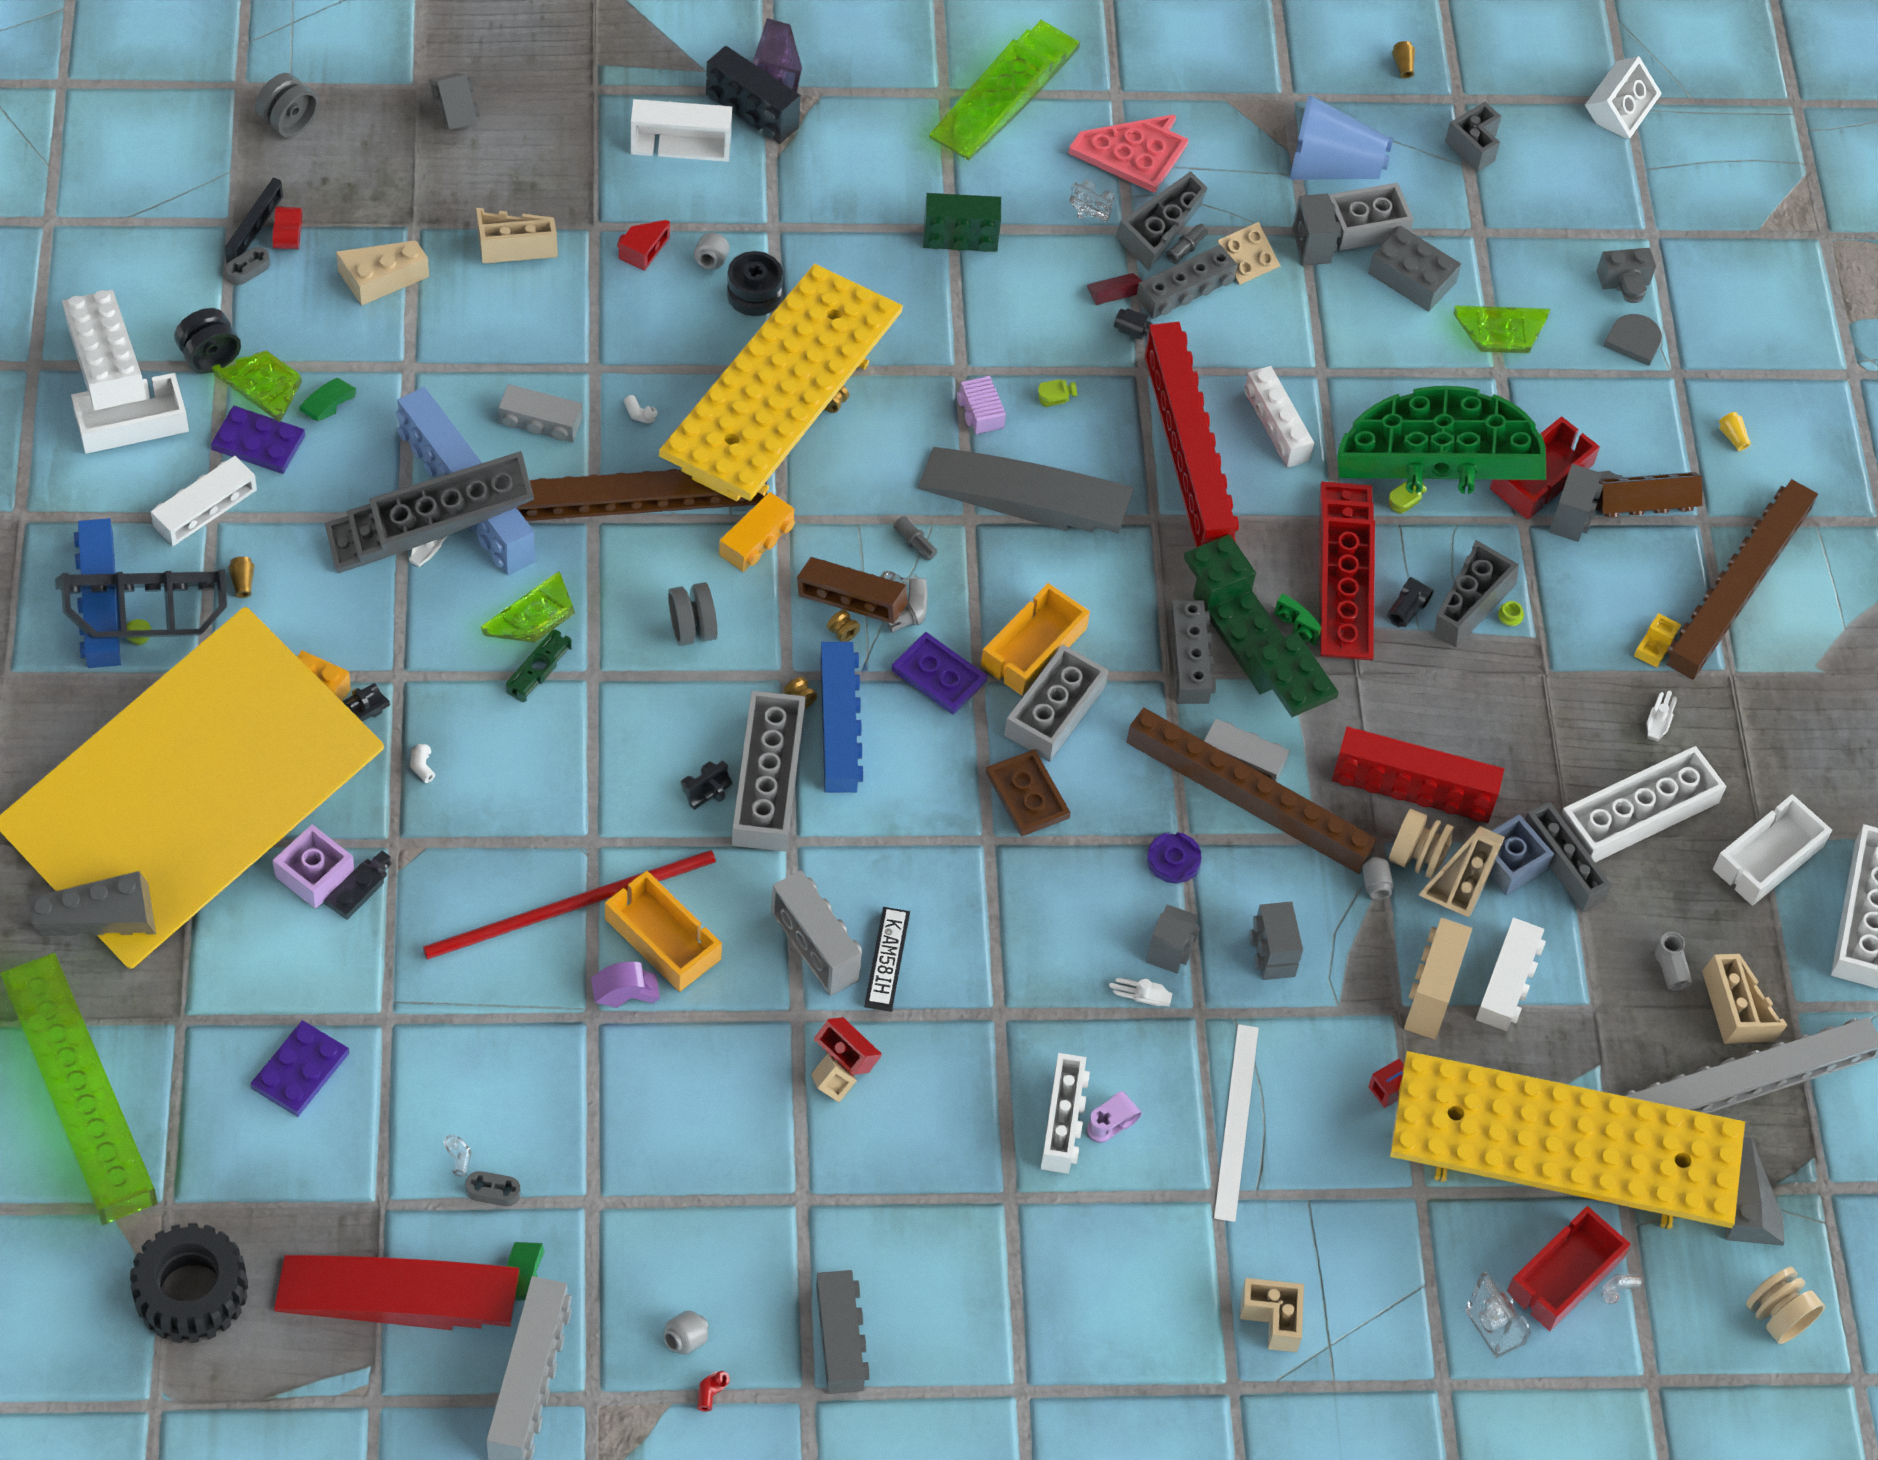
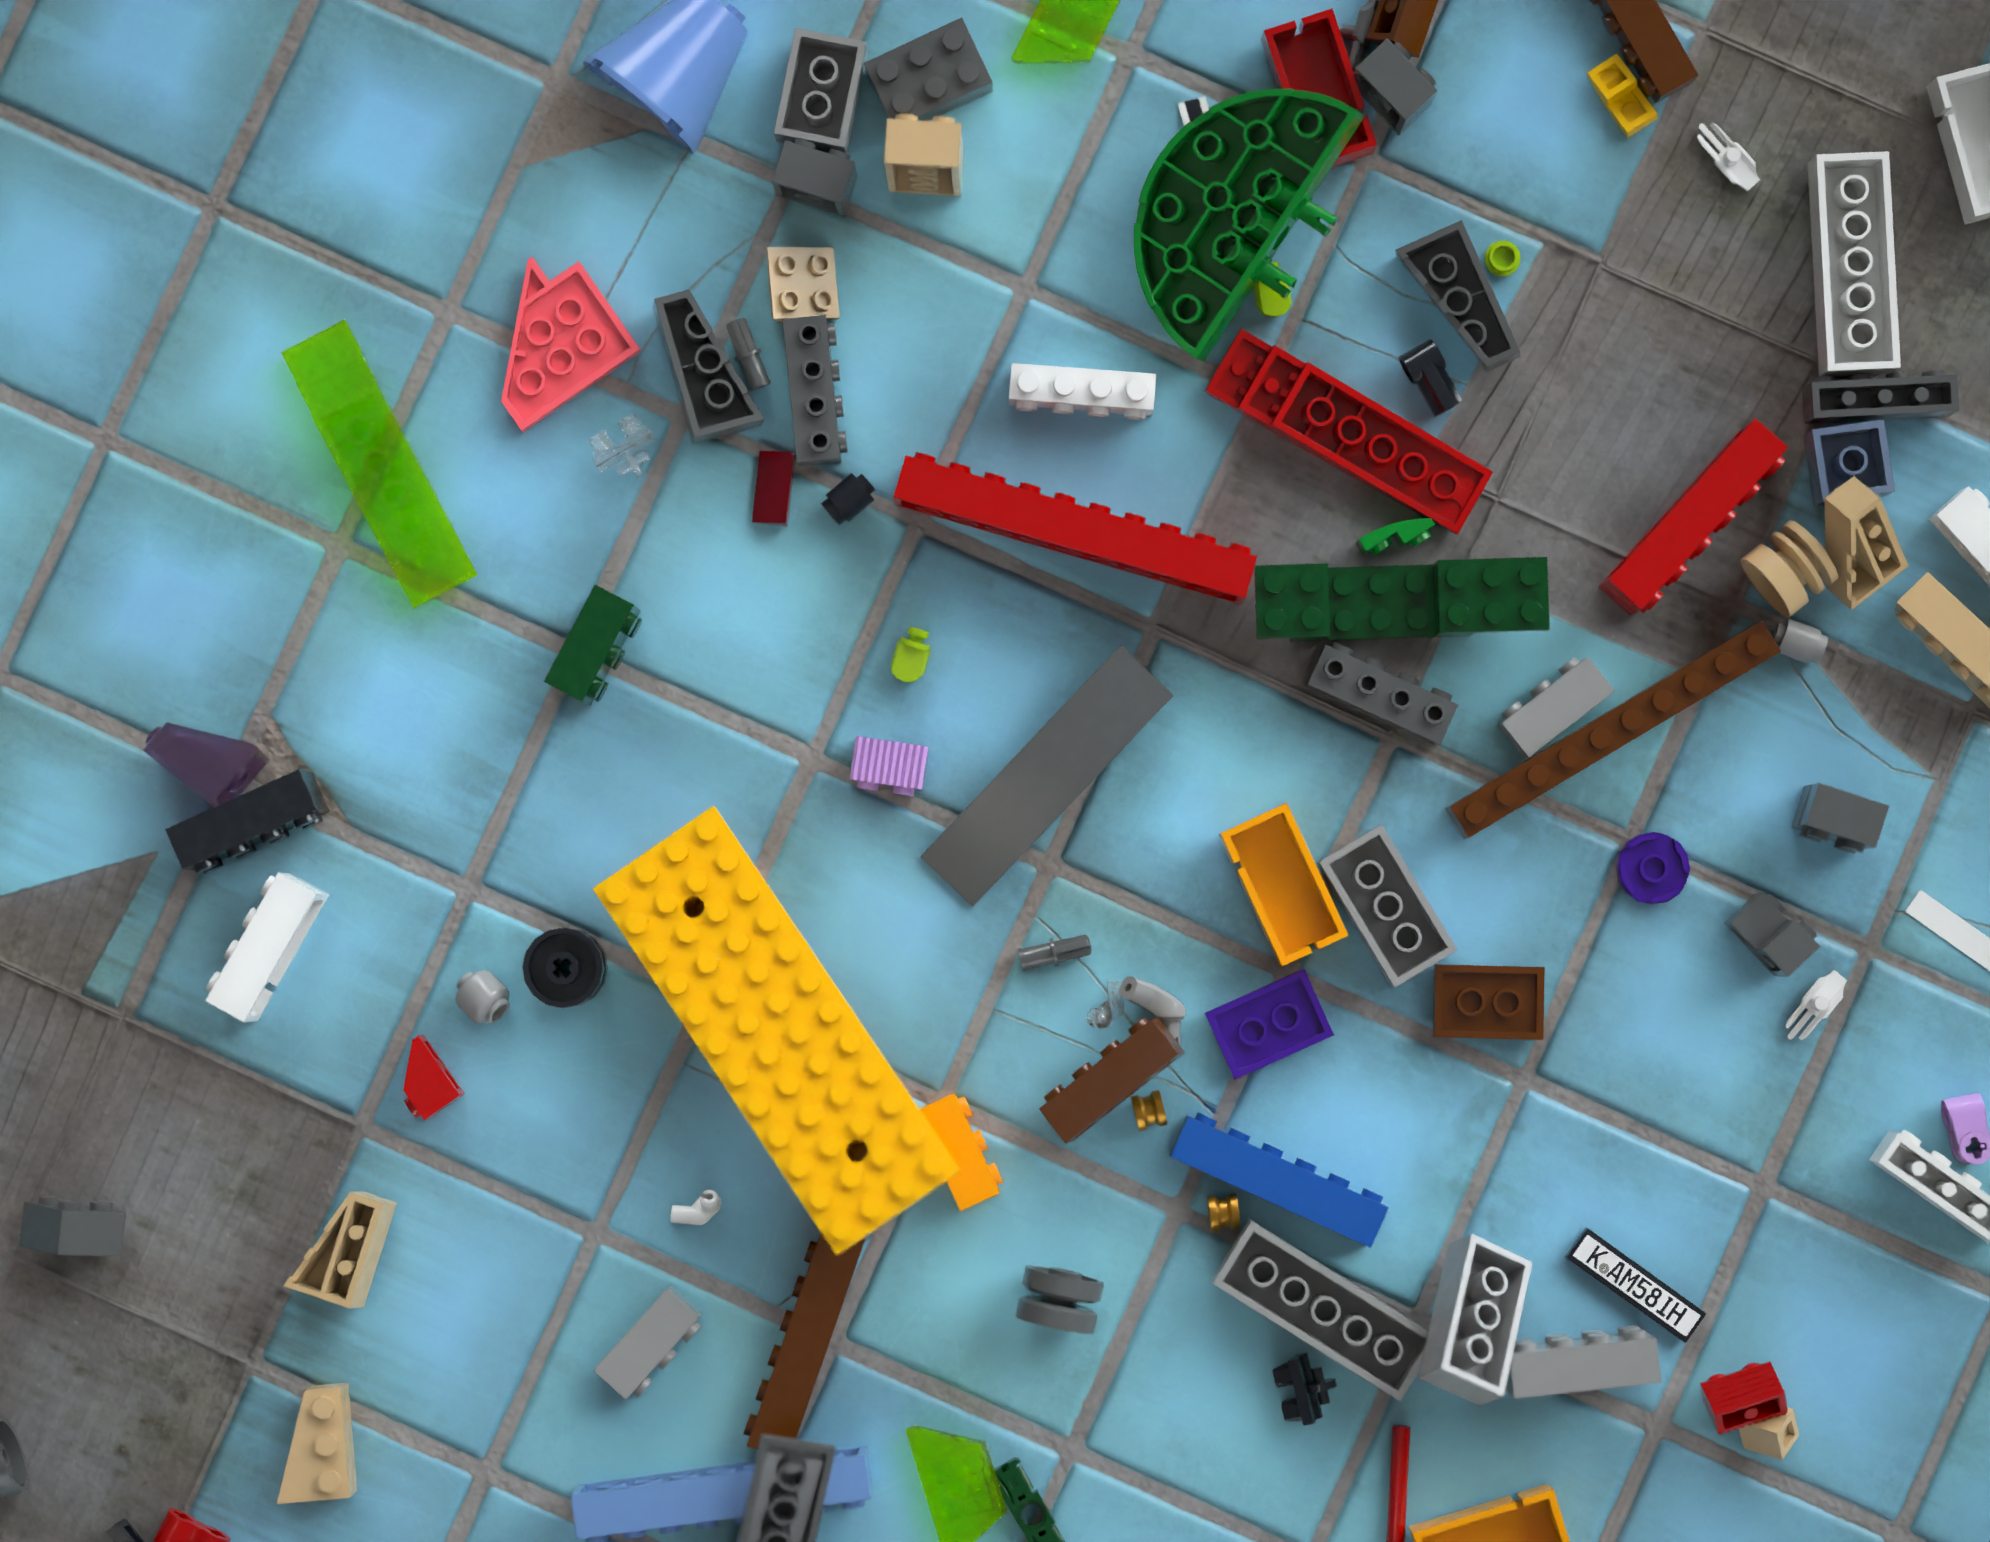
camera: 50 degrees left, 30 degrees up
(814, 844) = (1475, 1320): none -> light grey brick
(1365, 264) = (924, 155): none -> tan brick

